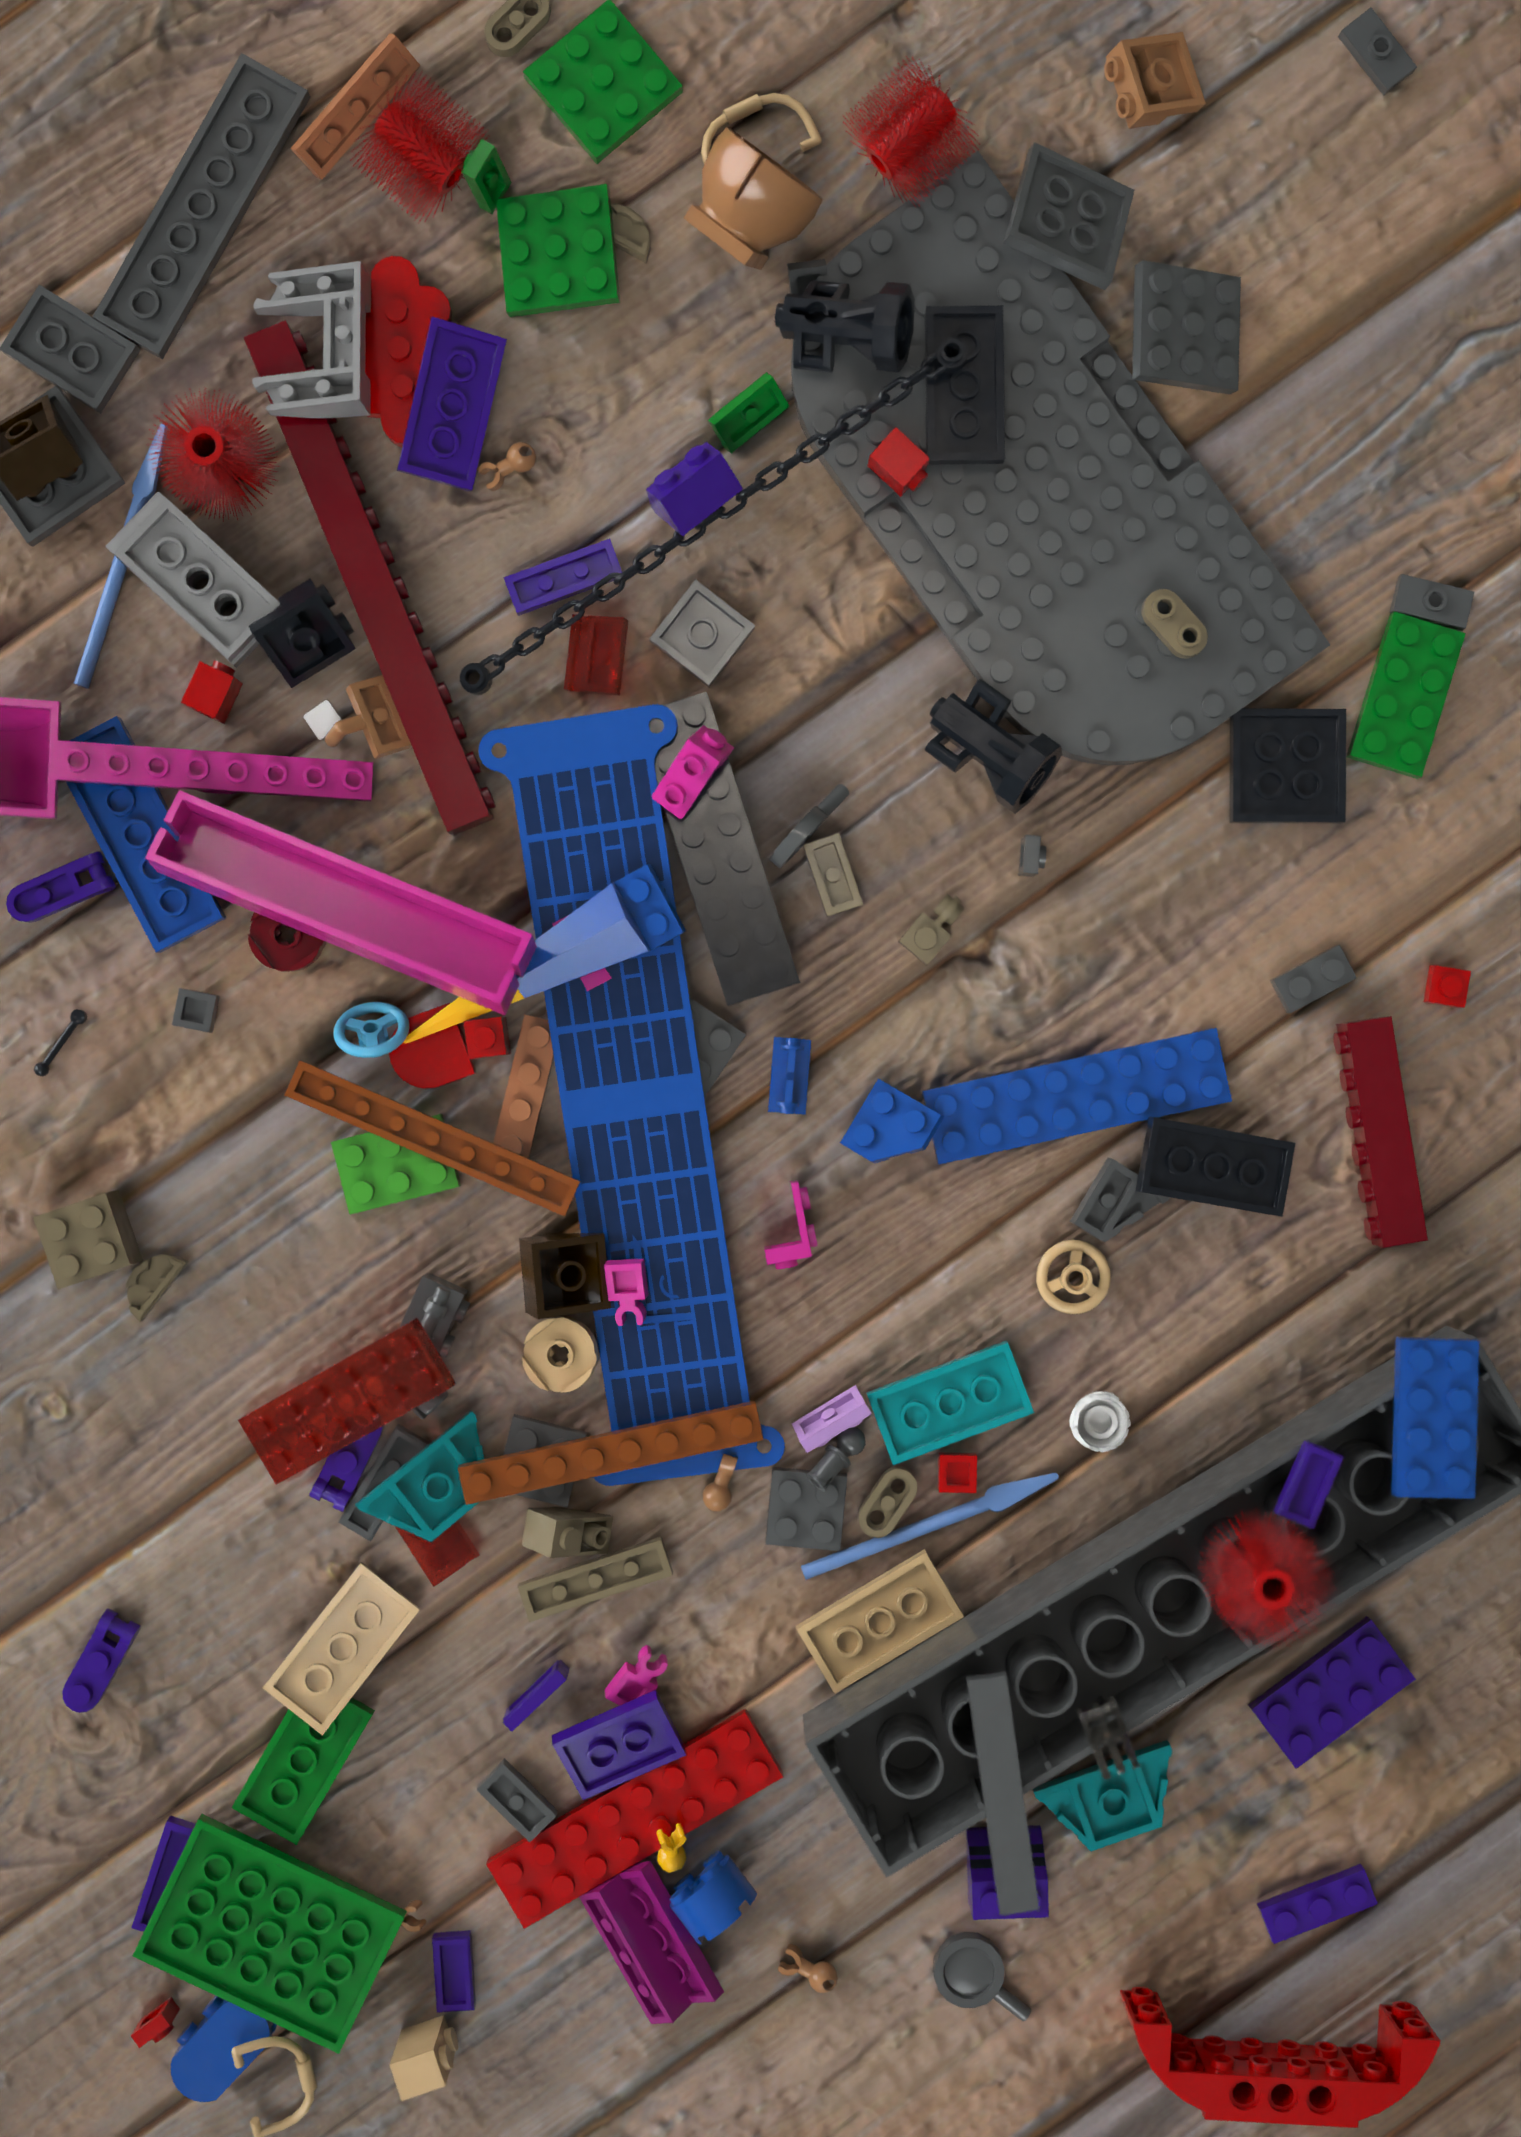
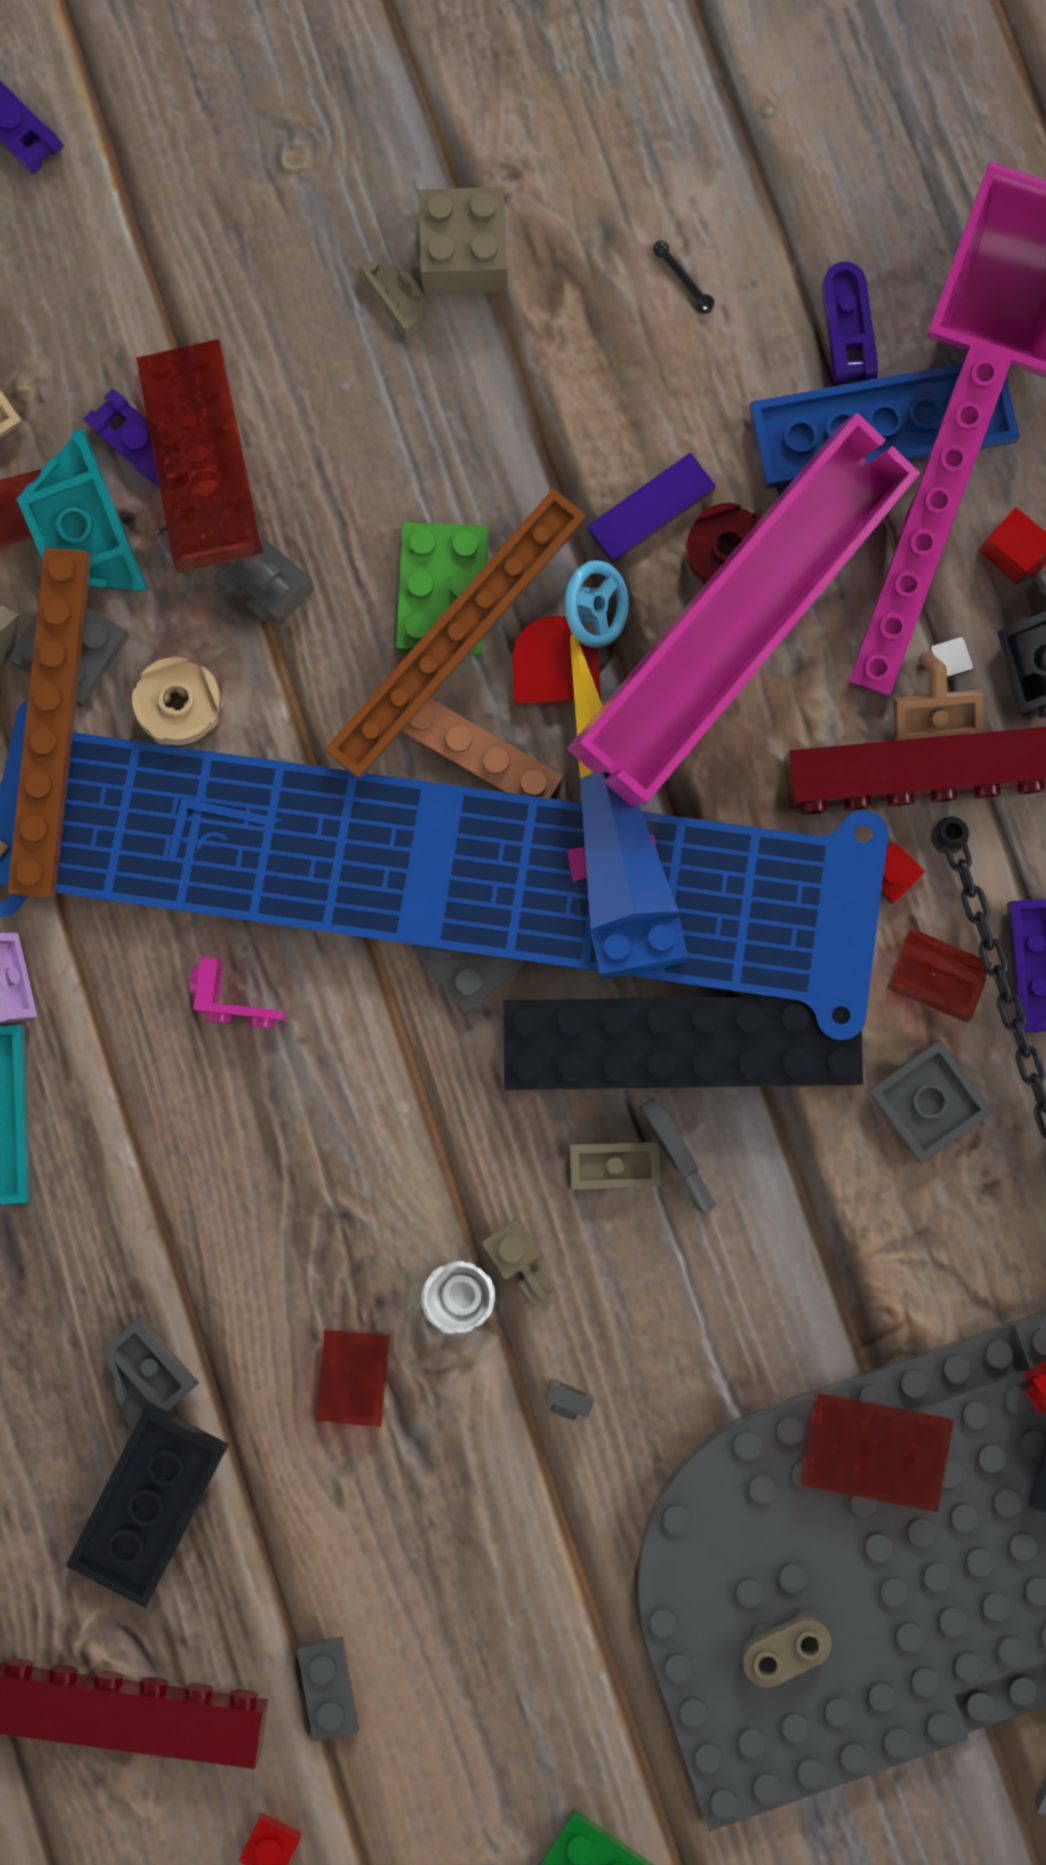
camera: 105 degrees right, 5 degrees down
(195, 1010) = (675, 426): dark grey plate -> none
(272, 1009) = (651, 508): none -> dark purple tile
(397, 1451) = (130, 497): dark grey tile -> none
(487, 1037) = (549, 726): red brick -> none
(520, 712) = (899, 873): none -> red plate
(563, 1274) = (262, 732): dark brown slope -> none
(627, 1284) = (227, 797): dark pink plate -> none
(692, 770) = (779, 1039): dark pink bracket -> none
(789, 1075) = (404, 1048): blue hinge -> none
(890, 1125) = (313, 1144): blue plate -> none
(977, 969) = (458, 1297): none -> white hair
(997, 596) = (876, 1451): none -> clear red plate
(1013, 762) = (680, 1411): black piece -> none
(1066, 1034) = (353, 1377): none -> clear red plate
(1078, 1095) = (279, 1370): blue plate -> none
(1084, 1285) = (64, 1312): tan piece -> none
(1288, 766) = (582, 1735): black plate -> none

